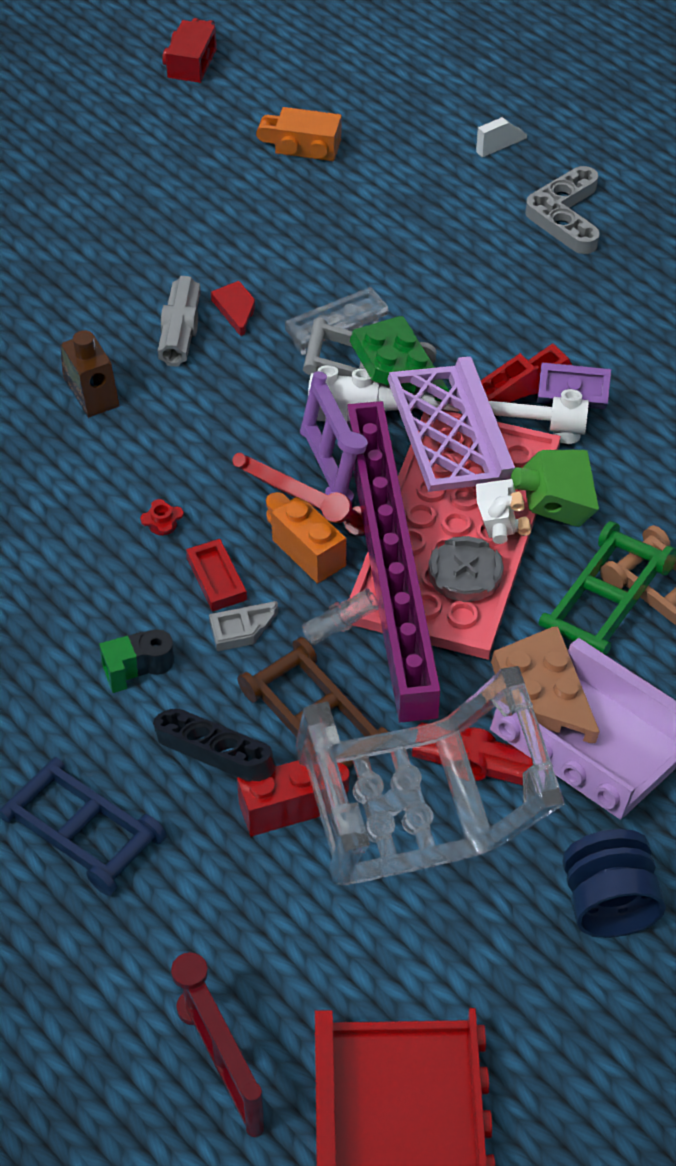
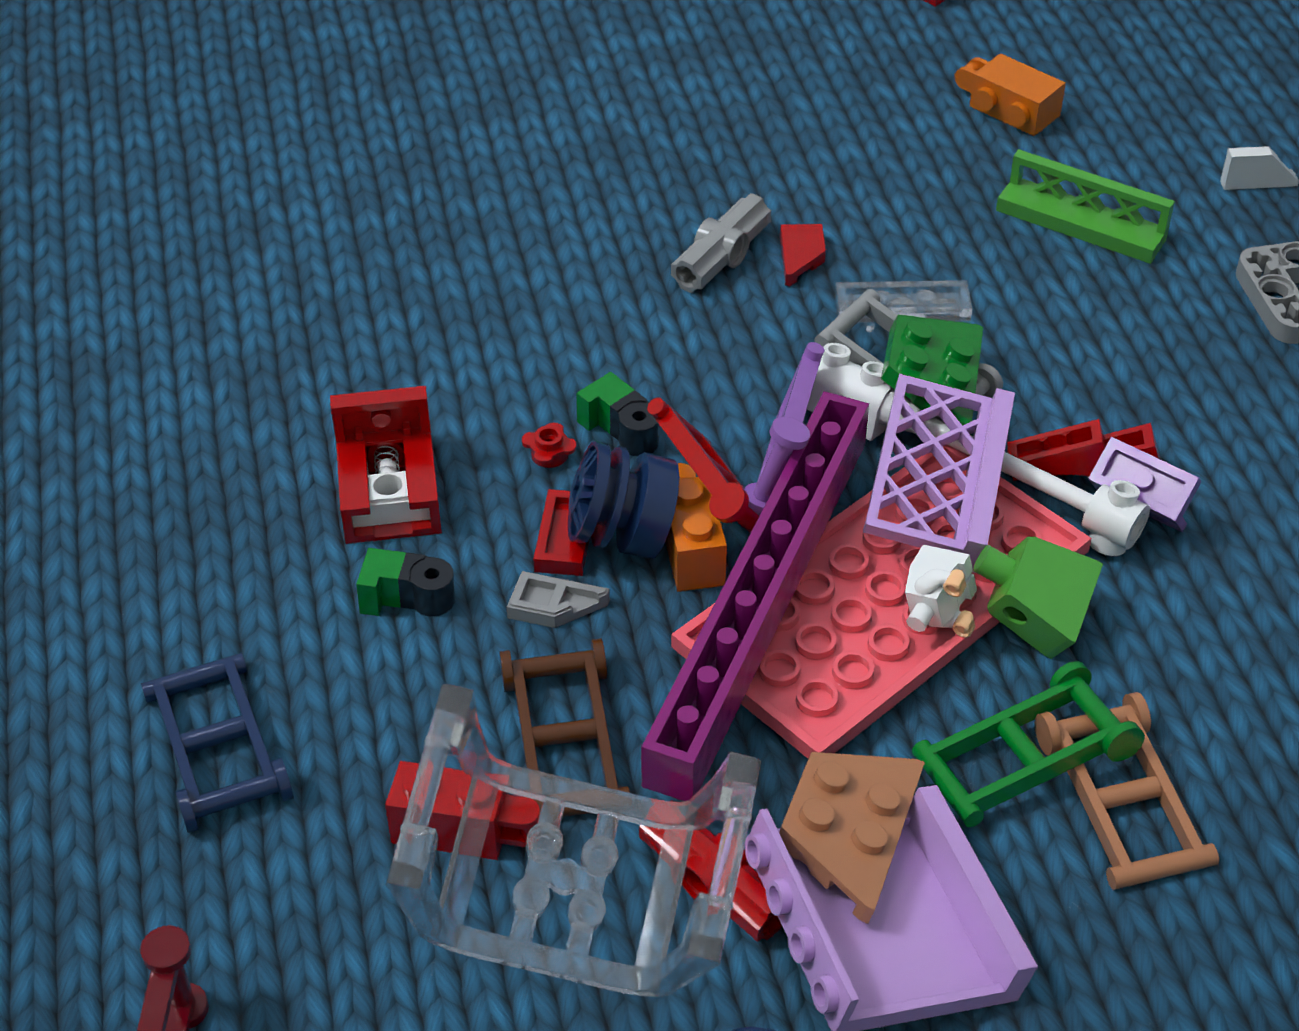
camera: 30 degrees right, 5 degrees down
(53, 559) = (385, 464): none -> red brick
(81, 360) = (574, 241): reddish brown torso -> none
(199, 475) = (619, 412): none -> leg
(248, 760) = (401, 706): black beam -> none
(256, 535) = (625, 500): none -> dark blue wheel
(340, 616) = (658, 635): clear pin -> none
(407, 208) = (1086, 215): none -> bright green fence
(465, 569) = (854, 644): flat silver tile -> none

